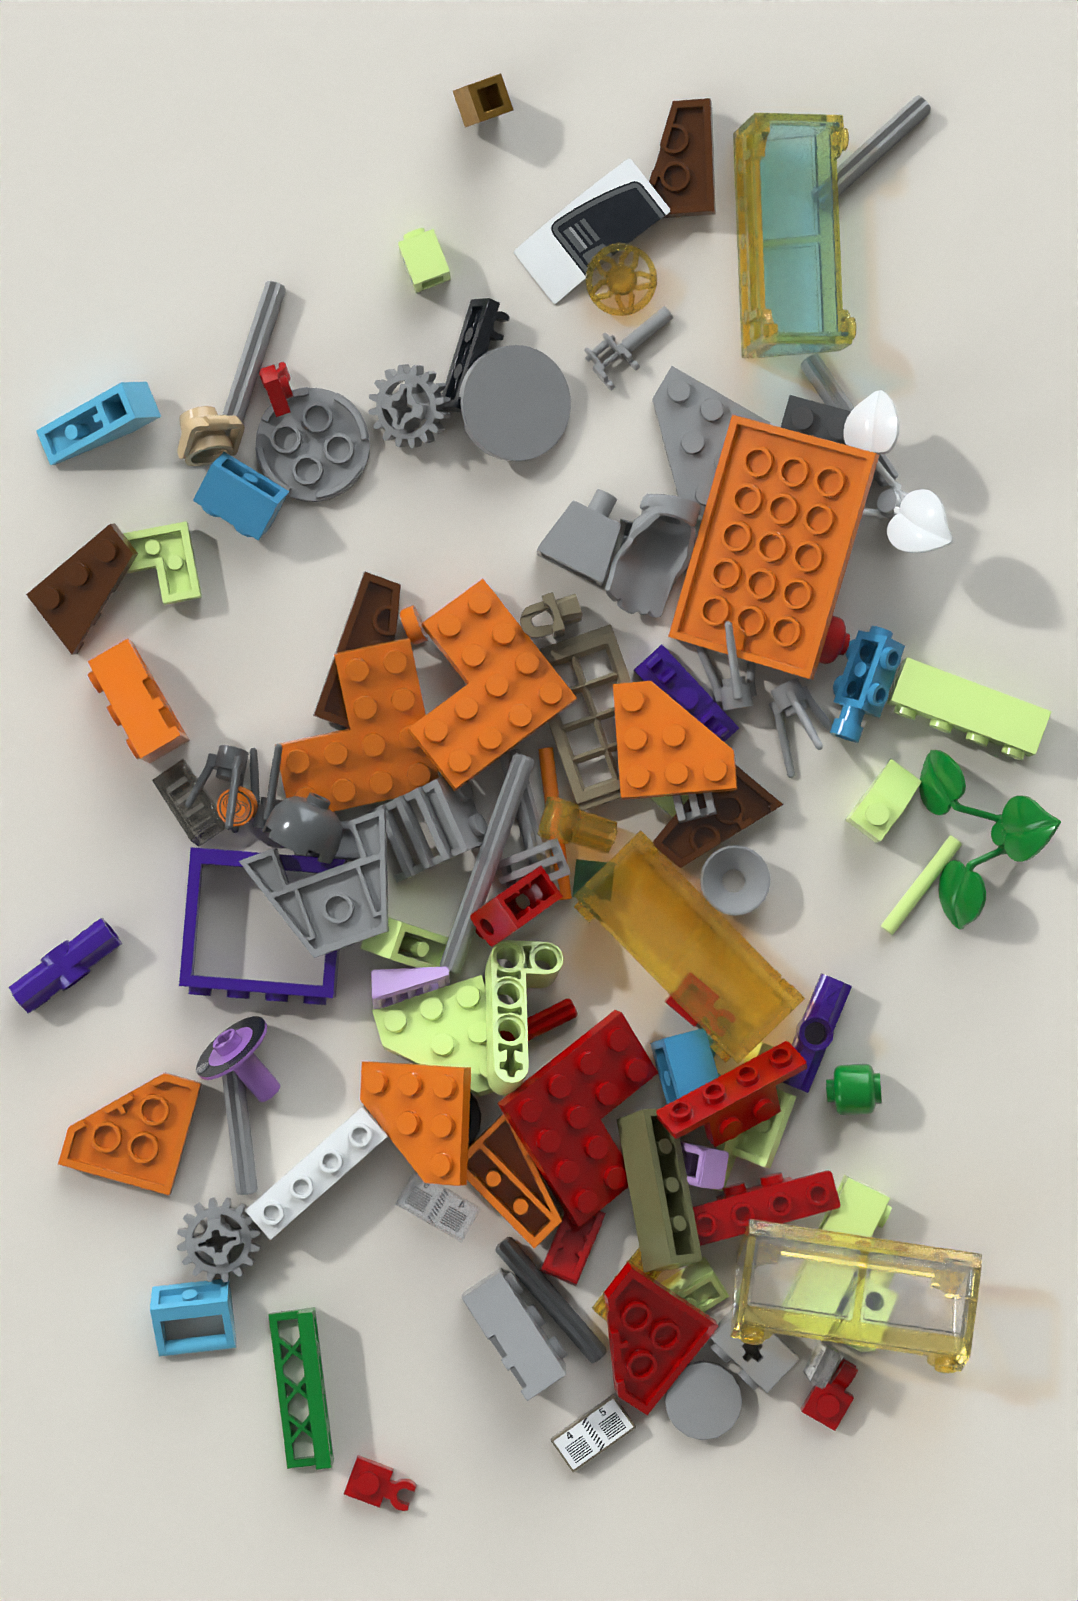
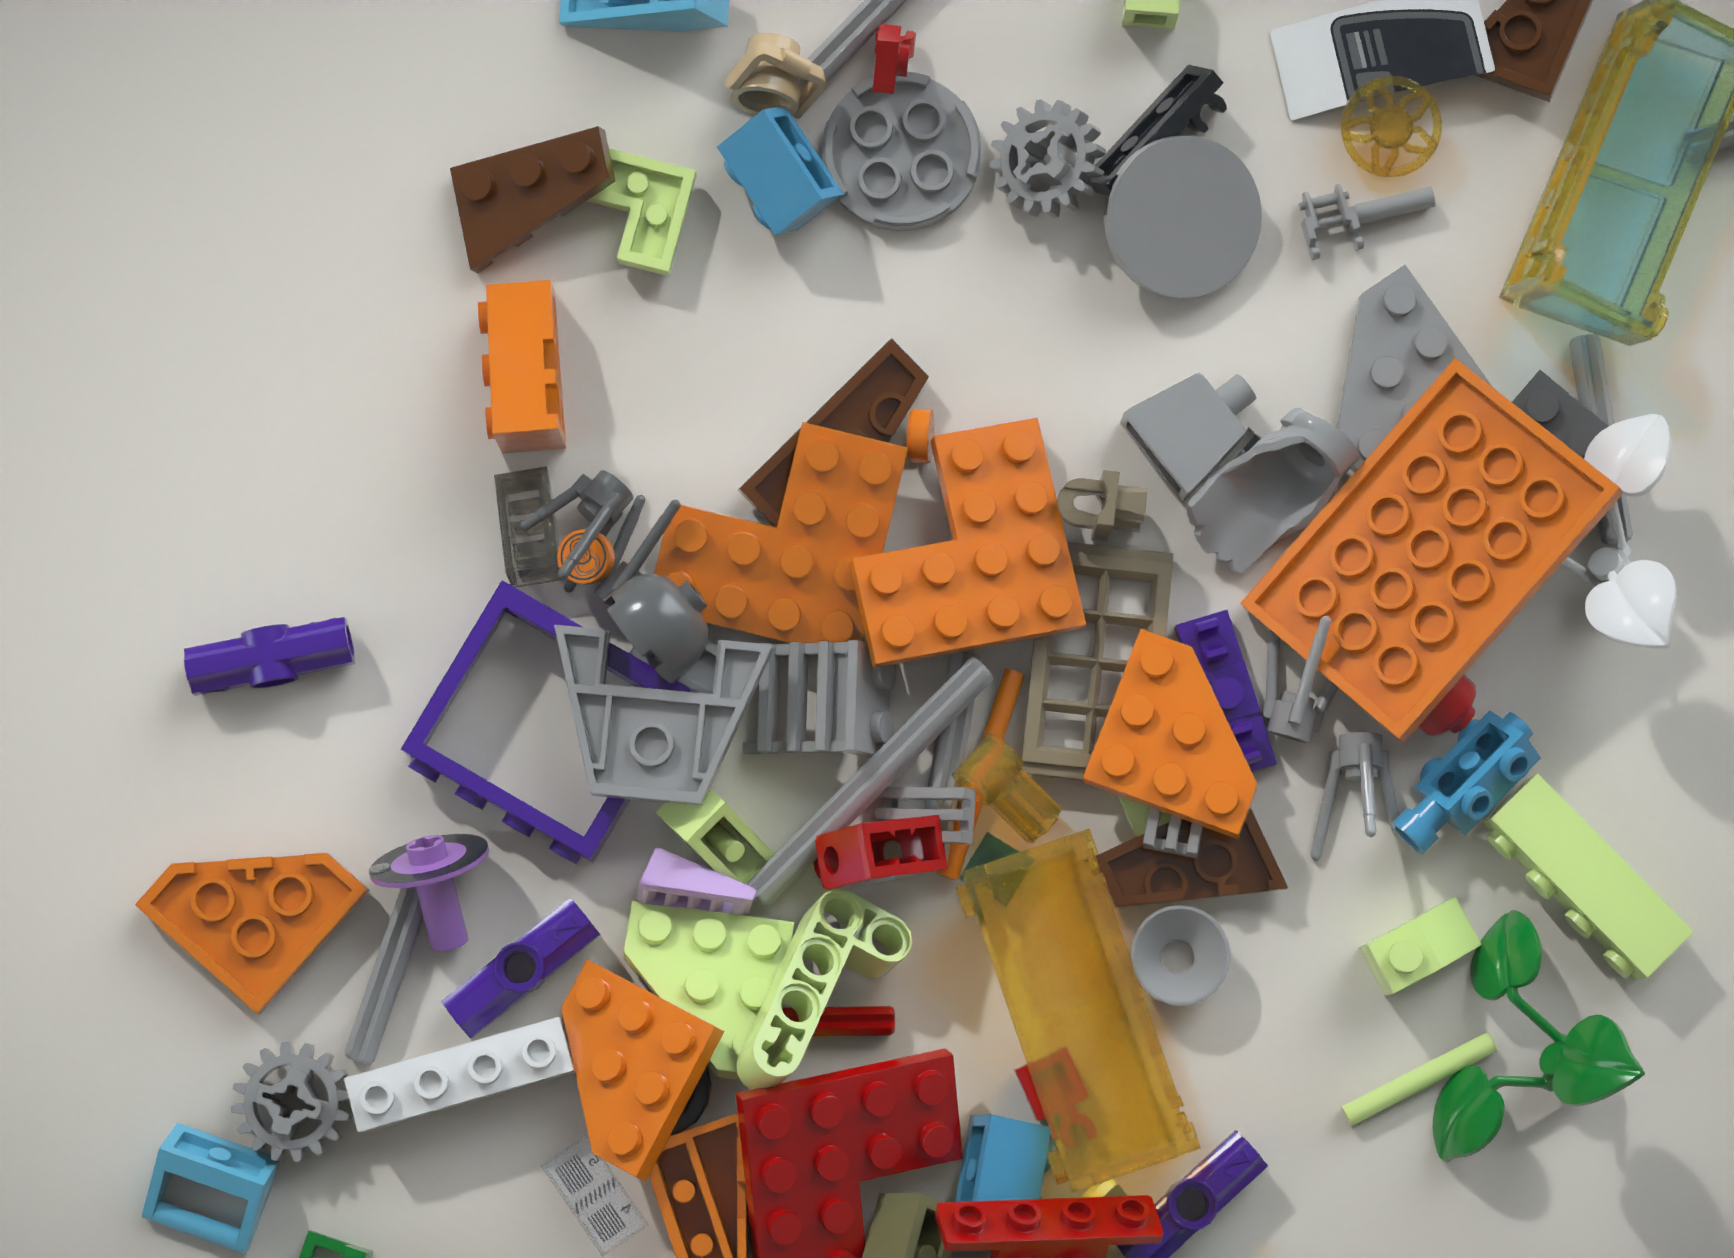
camera: 25 degrees right, 5 degrees down
(311, 1109) = (491, 990): none -> dark purple piece

